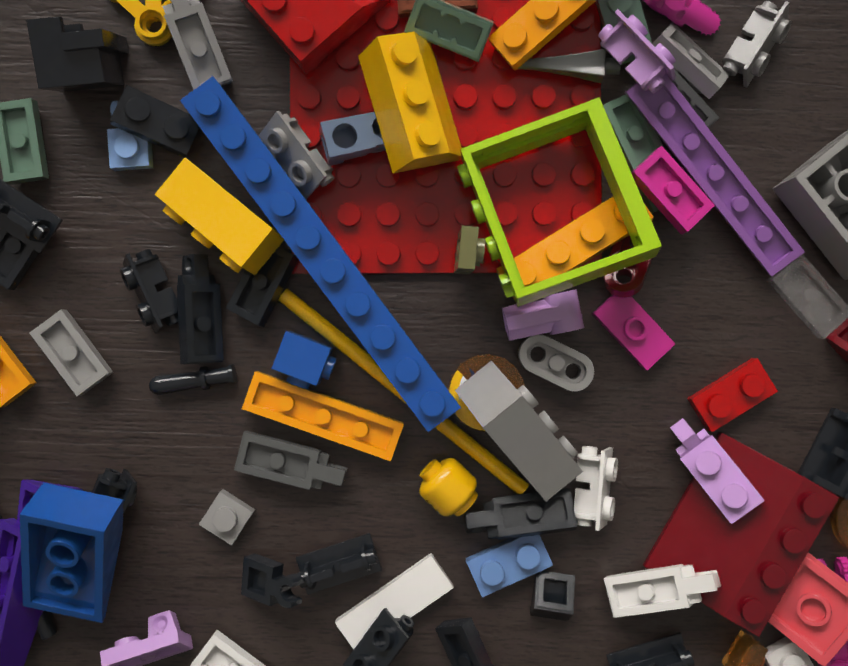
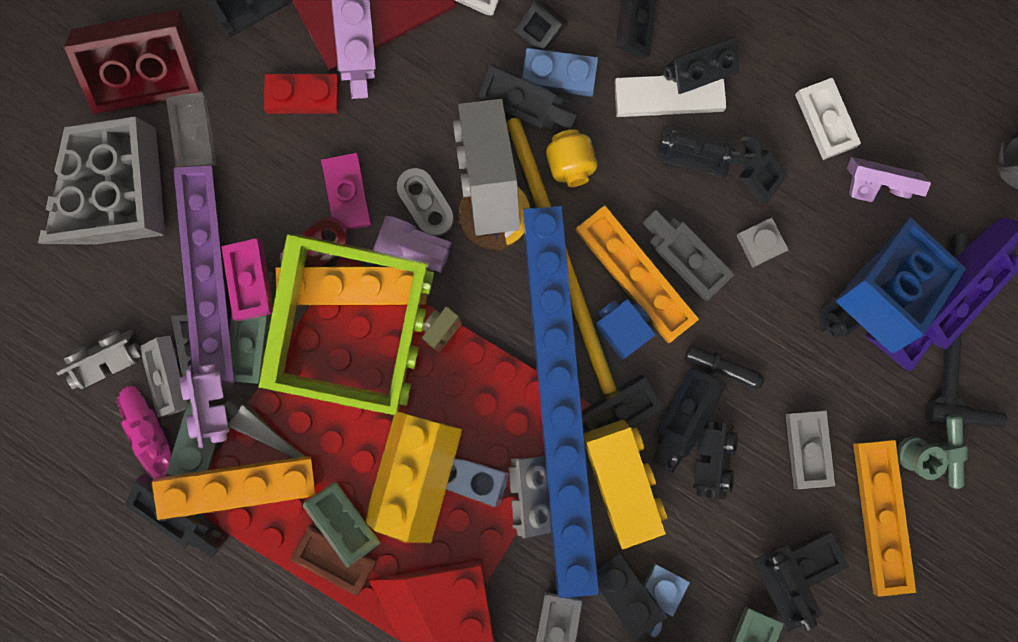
camera: 155 degrees left, 5 degrees down
(595, 502) = (462, 76): white hinge -> none

